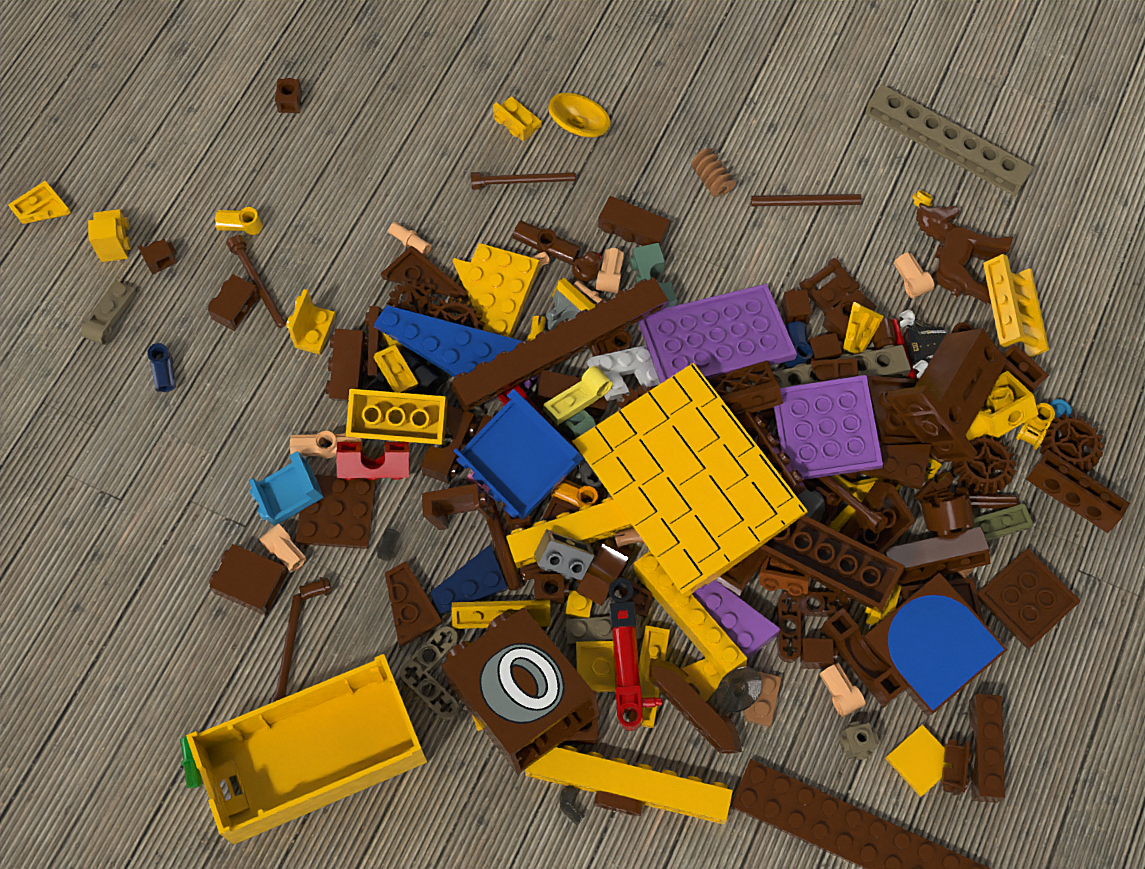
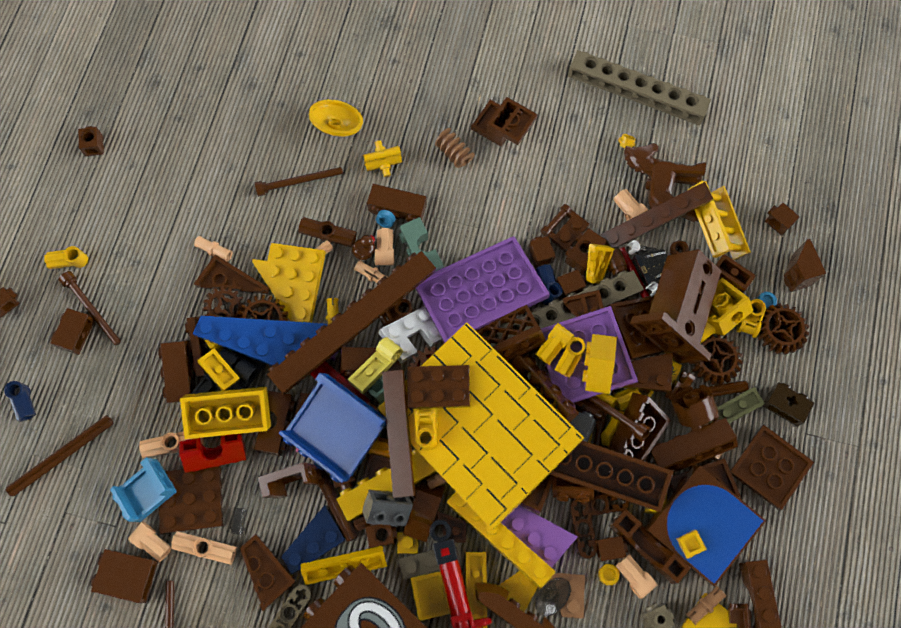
camera: 10 degrees left, 5 degrees up
(195, 436) = (59, 456): none -> reddish brown axle
(309, 324) = (140, 339): yellow bracket -> none
(315, 589) = (183, 572): reddish brown pin -> none
(331, 559) = (216, 550): none -> light nougat piece
(516, 118) = (285, 128): yellow bracket -> none
(567, 303) = (354, 283): piece -> none
(592, 472) = (398, 434): none -> reddish brown tile
(617, 238) = (385, 218): none -> dark azure tile
(626, 170) = (382, 158): none -> yellow pin
(626, 466) = (426, 424): none -> yellow piece
(648, 428) = (438, 387): none -> reddish brown plate
(778, 151) = (504, 121): none -> reddish brown bracket
(796, 402) = (554, 344): none -> yellow piece
(806, 200) = (532, 158): reddish brown piece -> none
(807, 425) = (570, 359): none -> yellow piece
(810, 683) = (608, 574): none -> yellow tile
(841, 431) = (600, 363): none -> yellow brick
(913, 659) = (691, 543): none -> yellow tile
(919, 735) = (706, 605): none -> medium nougat pin
(943, 287) = (658, 216): none -> reddish brown plate
(1067, 541) = (798, 407): none -> dark brown brick
(1078, 491) = (795, 369): reddish brown brick -> none
(1095, 318) = (781, 218): none -> reddish brown brick
(1110, 380) = (803, 268): none -> reddish brown slope

